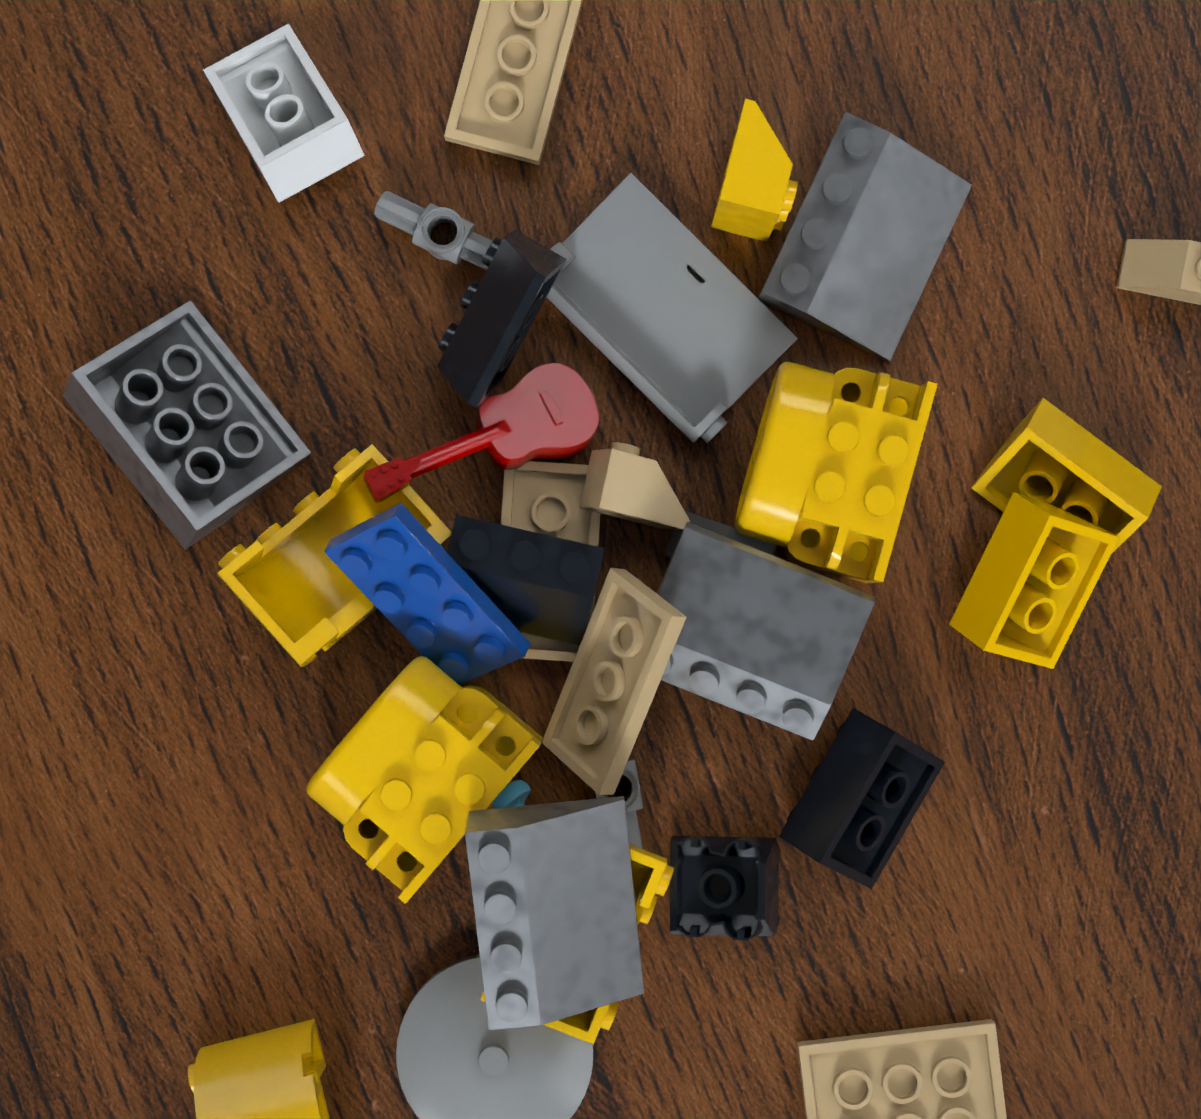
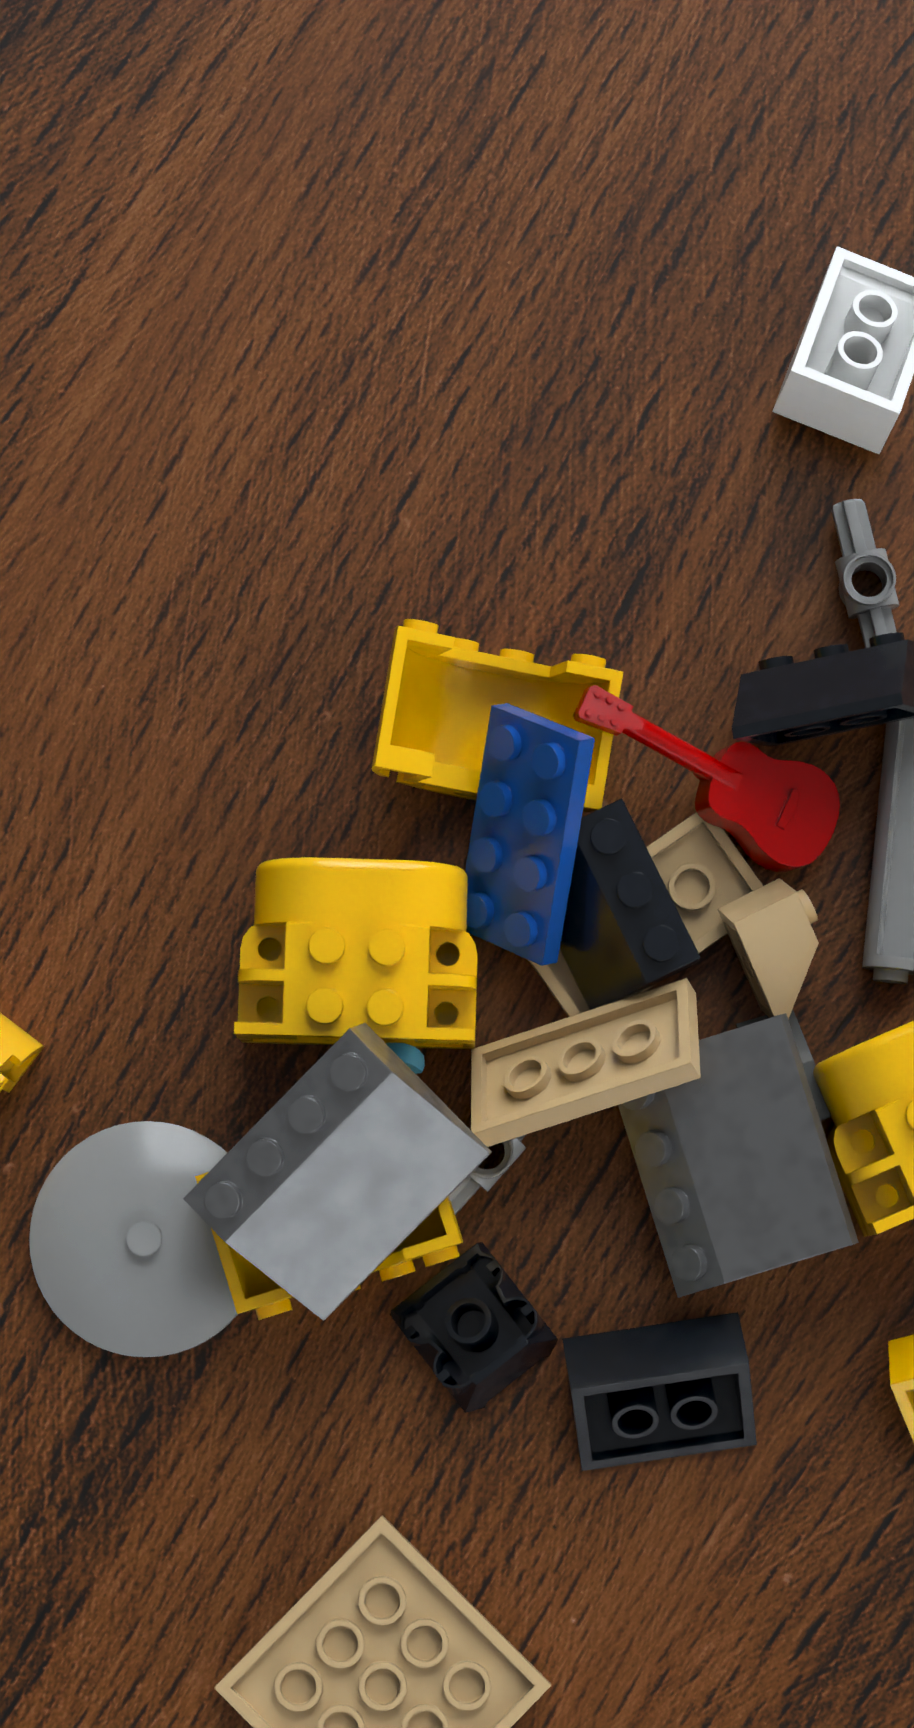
camera: 60 degrees right, 5 degrees down
(185, 423) = (501, 489): flat silver slope -> none

